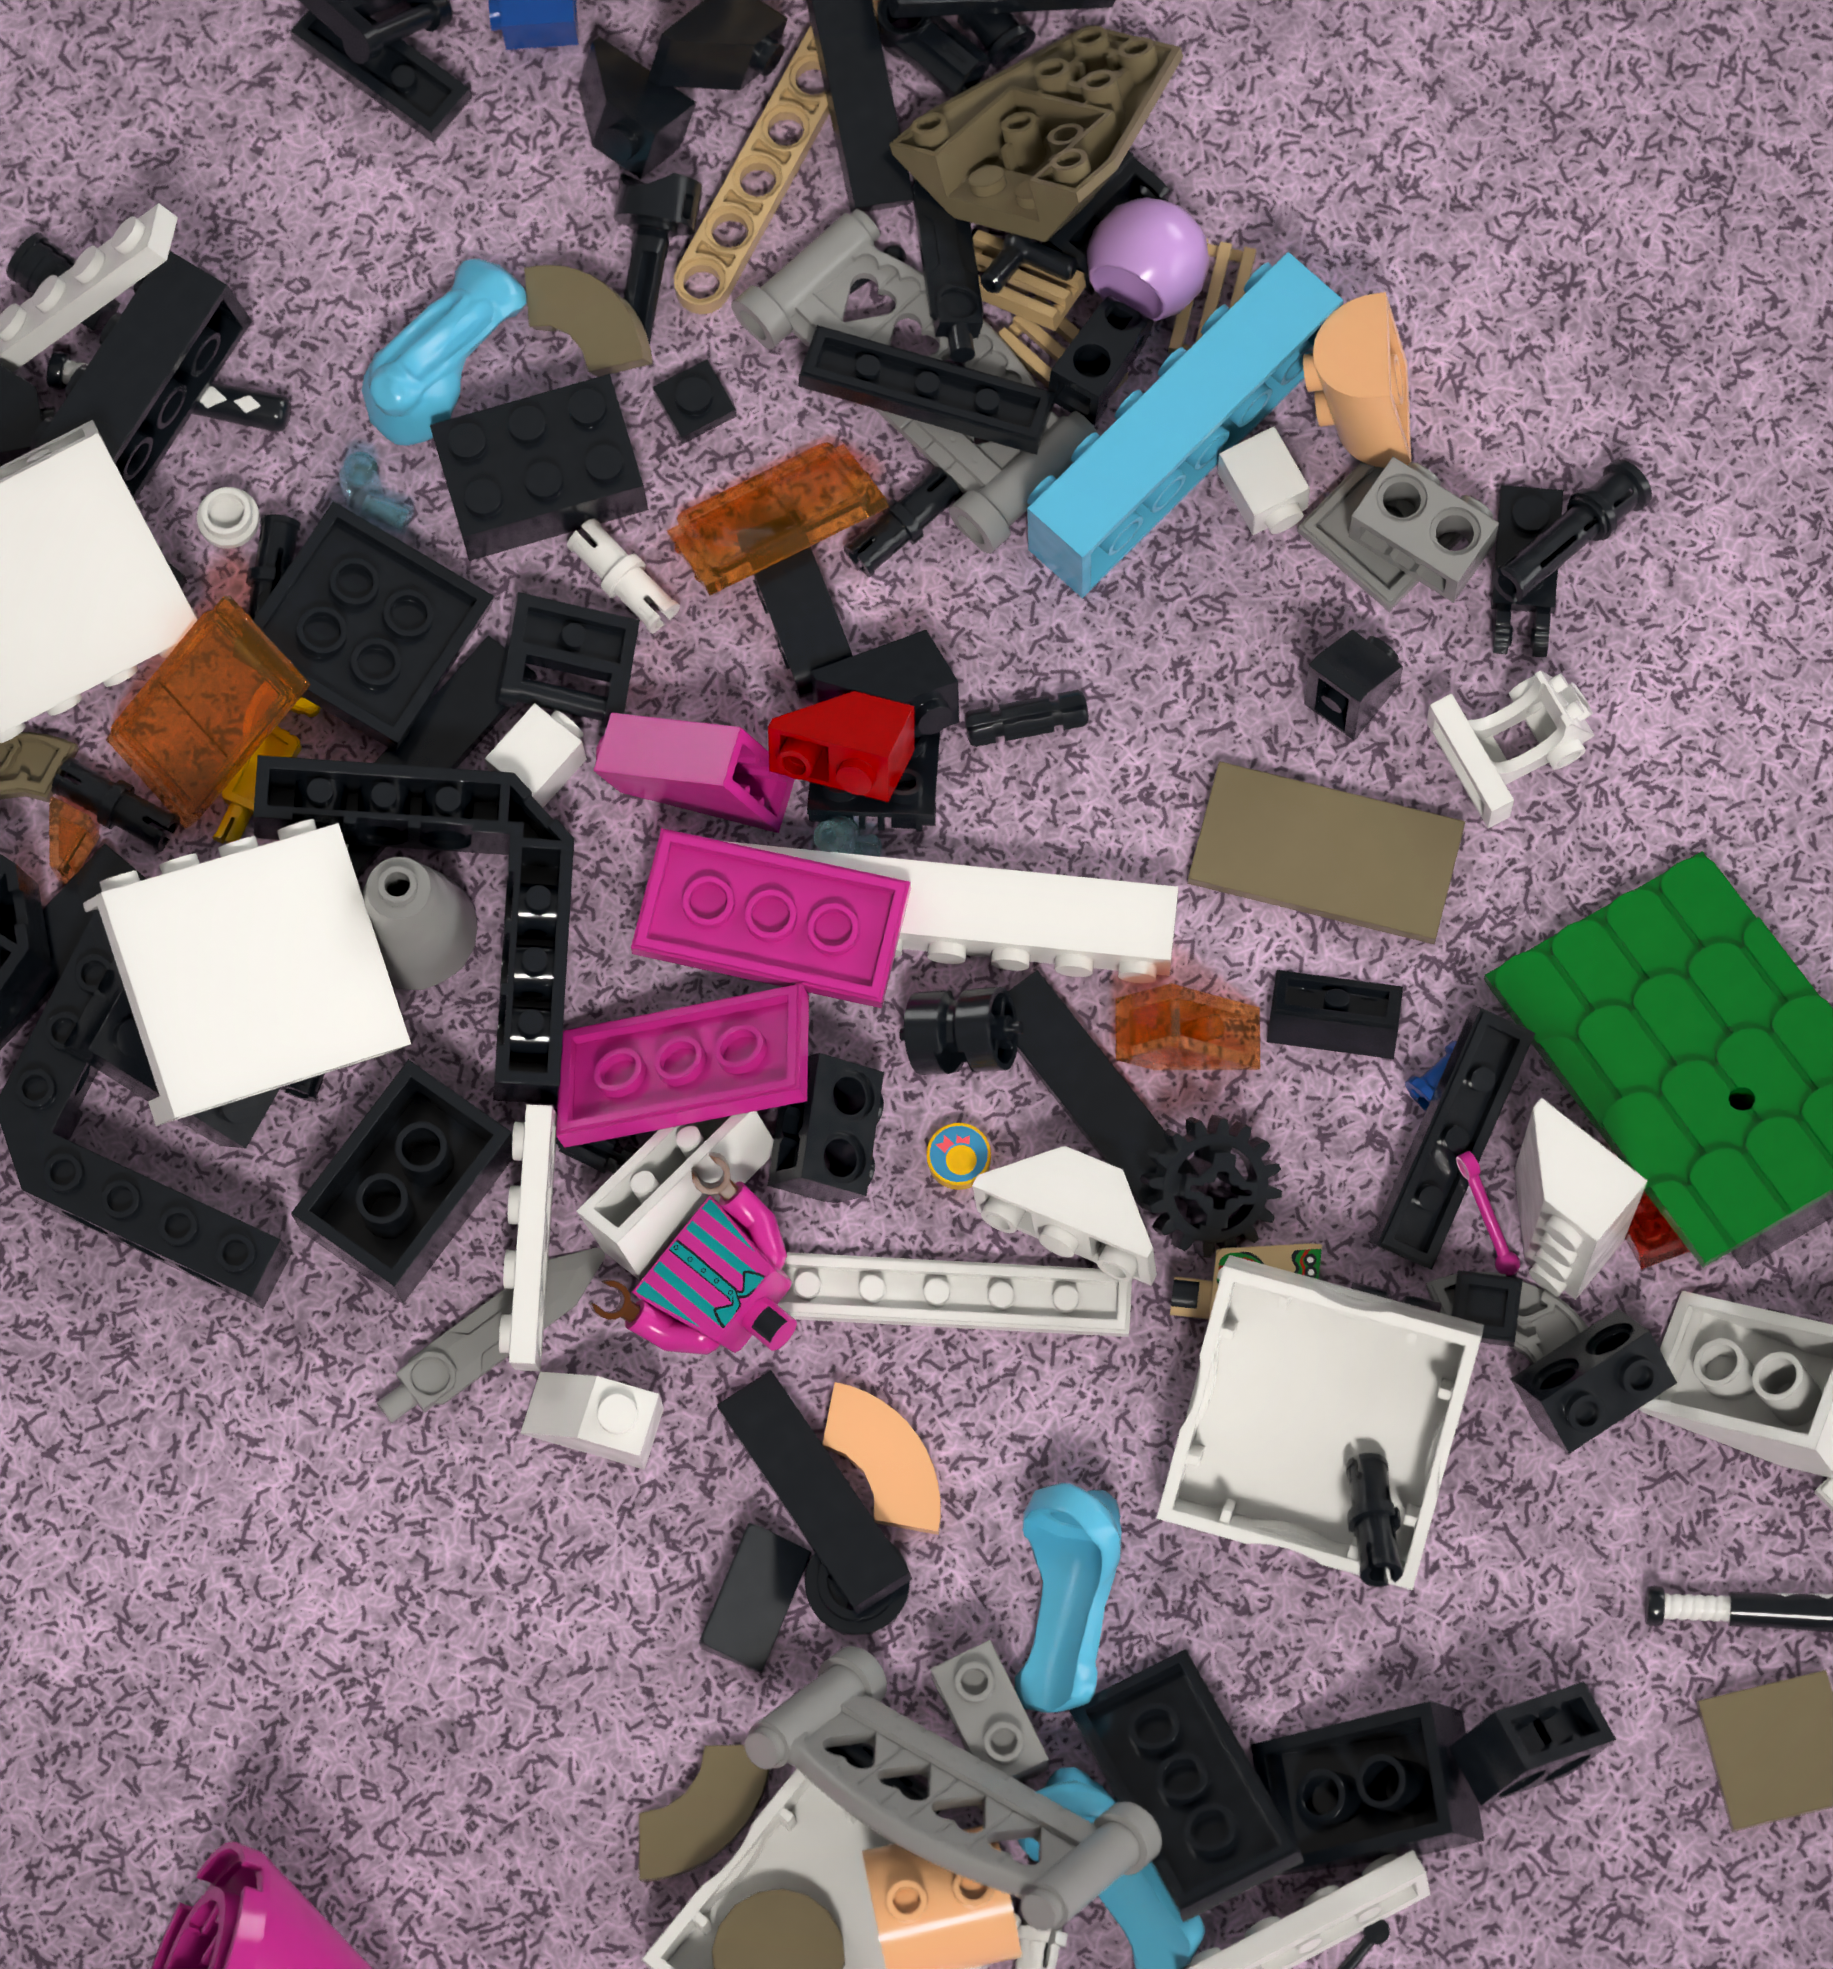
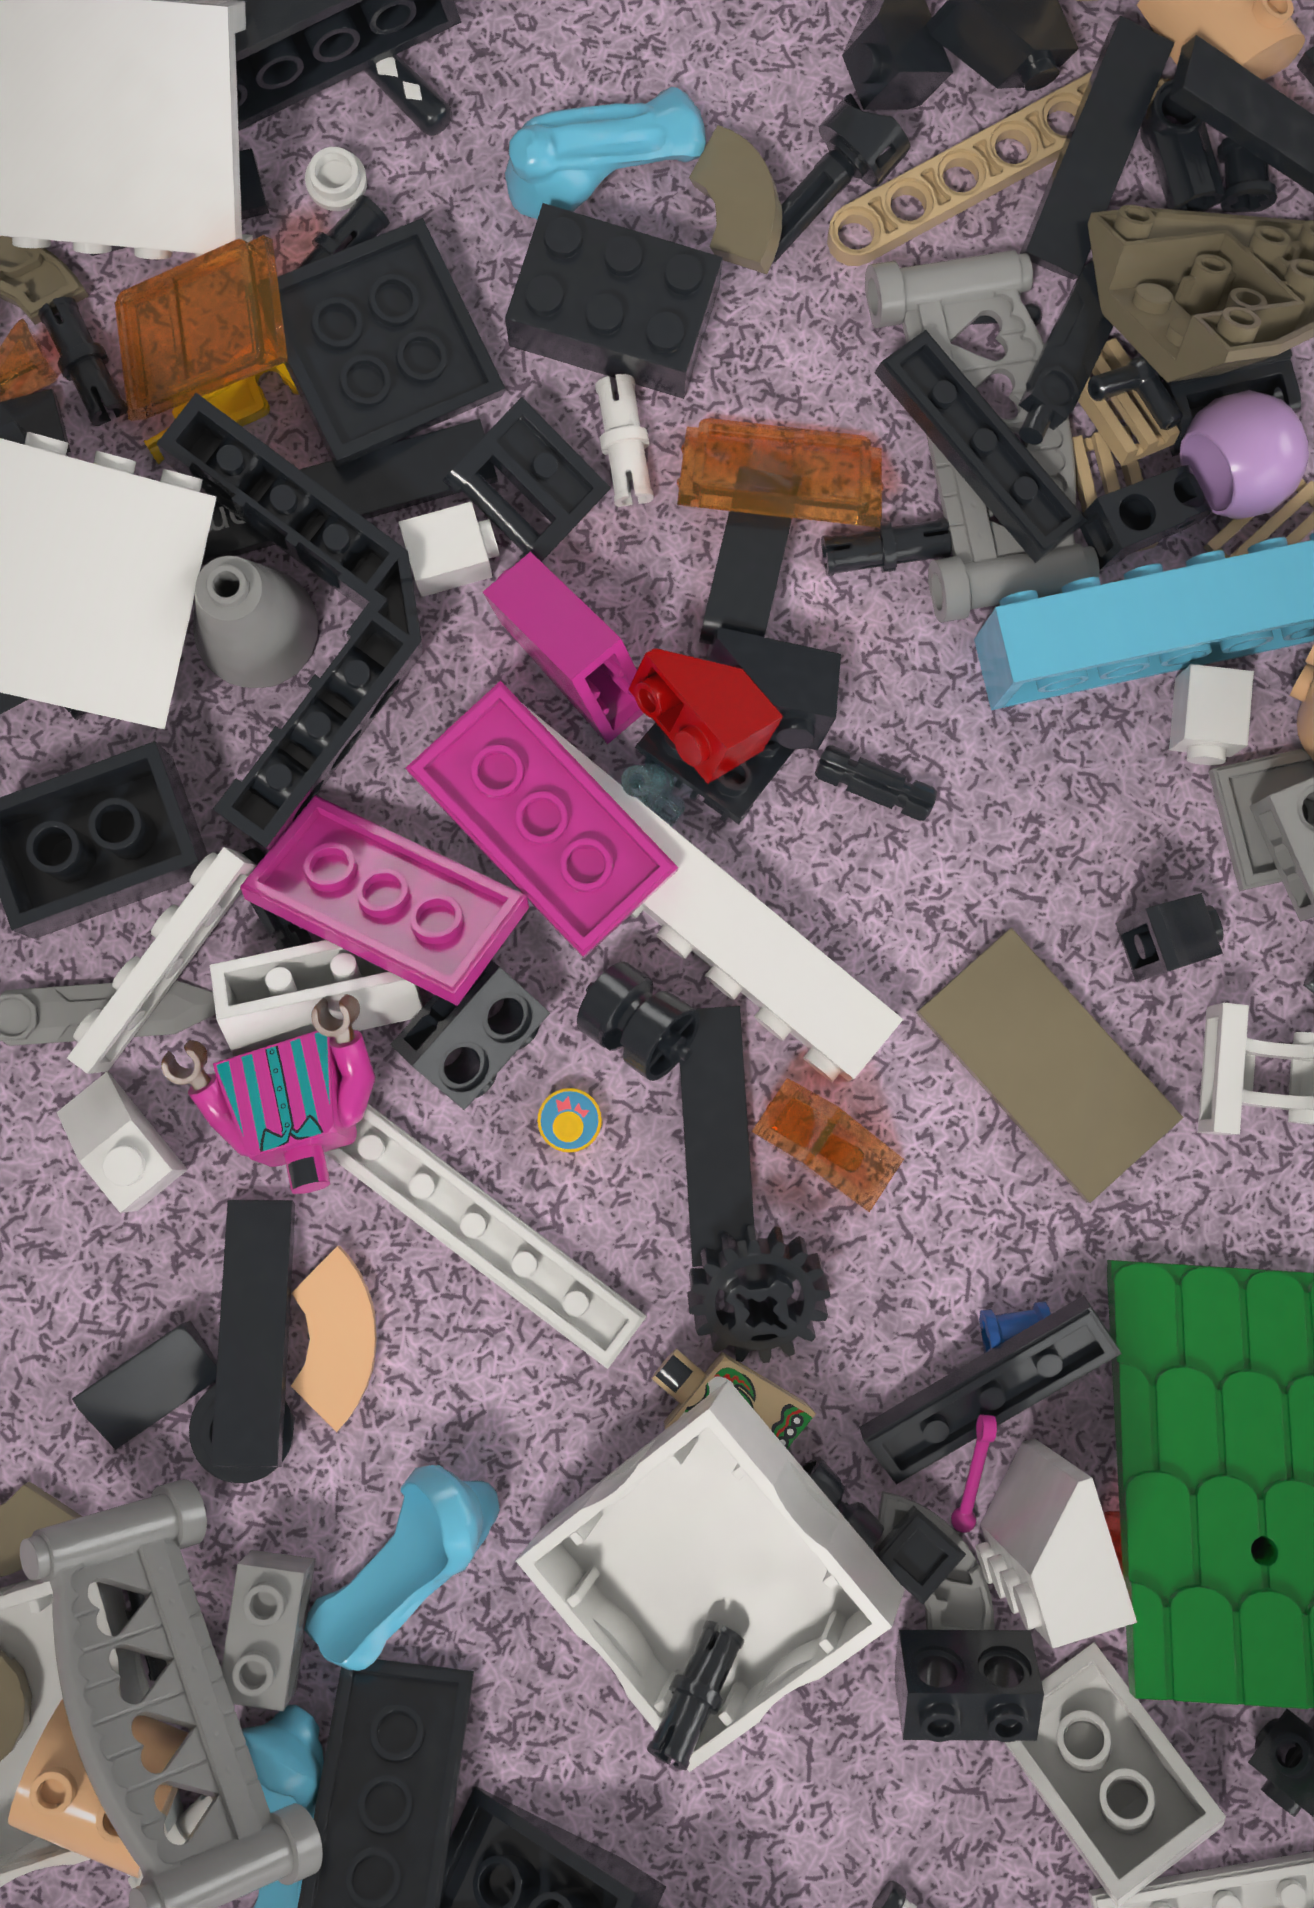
camera: 20 degrees right, 10 degrees up
(366, 496) = (460, 236): clear light blue arm -> none
(694, 401) = (782, 331): black plate -> none
(1072, 1209) = (631, 1236): white slope -> none
(1335, 1014) = (963, 1208): black slope -> none

